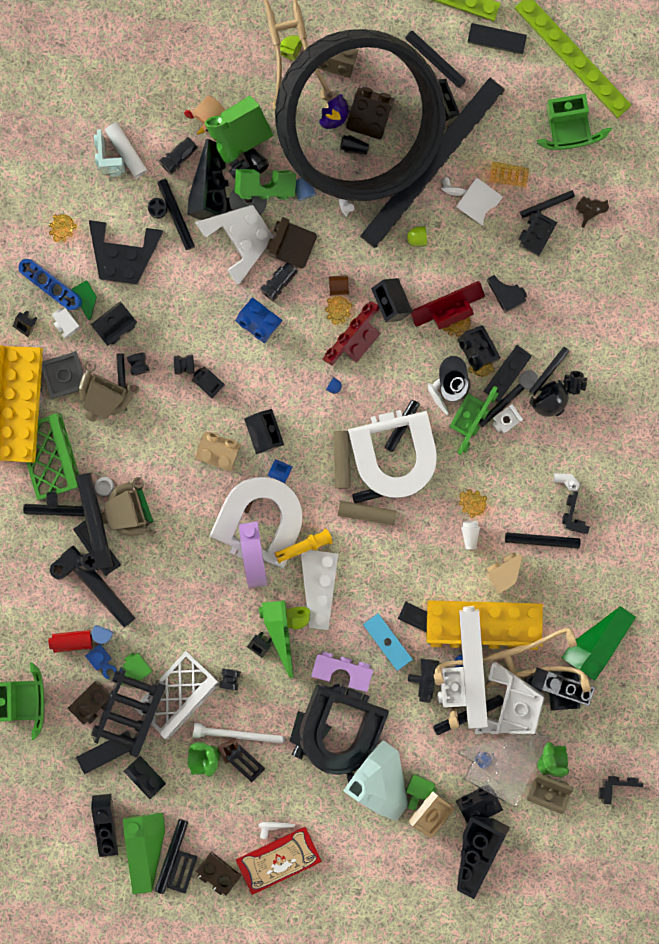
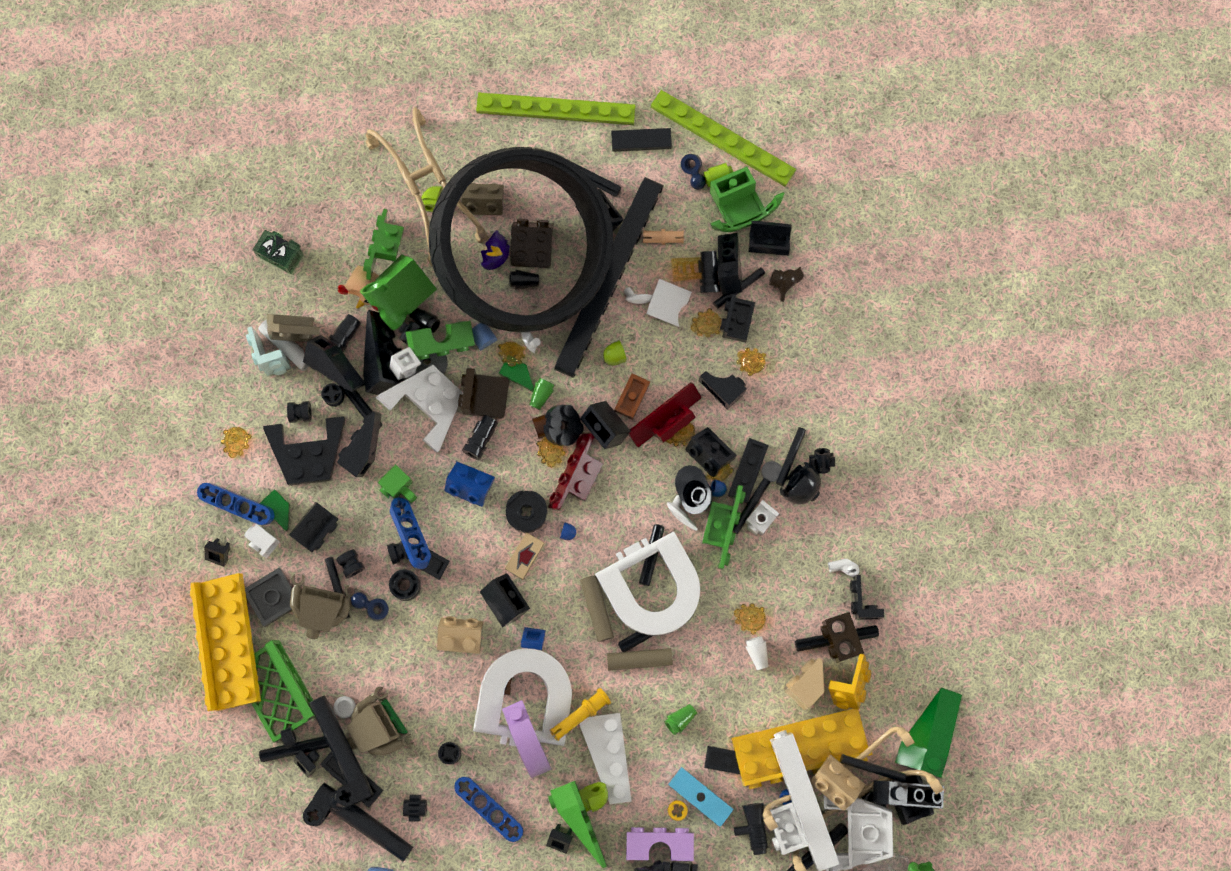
camera: 15 degrees left, 10 degrees down
(61, 525) = (306, 763): none -> black tile
(124, 216) = (299, 412): none -> black wheel
(135, 137) = (291, 328): none -> dark tan brick
(139, 61) = (278, 251): none -> clear green brick
(139, 399) = (360, 600): none -> dark blue plate
(144, 586) = (415, 808): none -> black gear
(163, 179) = (330, 361): none -> black slope
(170, 267) = (362, 449): none -> black slope
(180, 386) = (397, 578): none -> black wheel
(184, 549) = (449, 753): none -> black wheel
(193, 304) = (396, 483): none -> bright green brick
(199, 351) = (411, 532): none -> blue beam
(205, 604) = (488, 809): none -> blue beam
(228, 199) = (405, 367): none -> white brick
(238, 82) = (386, 243): none -> bright green bracket
(291, 397) = (524, 556): none -> tan tile
(306, 348) = (526, 499): none -> black plate
(325, 211) = (511, 353): none -> clear yellow piece
(326, 230) = (518, 374): none -> green tile
(343, 254) = (541, 393): none -> bright green cone
(363, 290) = (572, 423): none -> black plate
(369, 650) = (683, 812): none -> yellow bush
(388, 572) = (680, 719): none -> bright green cone
(423, 279) = (632, 396): none -> dark orange plate
(477, 382) = (719, 488): none -> blue hinge
(491, 138) = (663, 236): none -> light nougat pin
(505, 661) = (837, 783): none -> tan bracket
(508, 229) = (706, 323): none -> clear yellow piece
(524, 181) = (709, 272): none -> black axle
(537, 92) = (697, 180): none -> dark blue plate
(538, 275) = (751, 361): none -> clear yellow piece
(539, 657) = (873, 768): none -> black bar
(542, 592) = (853, 694): none -> yellow bracket
(544, 180) = (729, 264): none -> black slope
(551, 541) = (848, 636): none -> dark brown brick
(558, 90) = (717, 172): none -> lime brick
(588, 165) = (769, 238): none -> black bracket

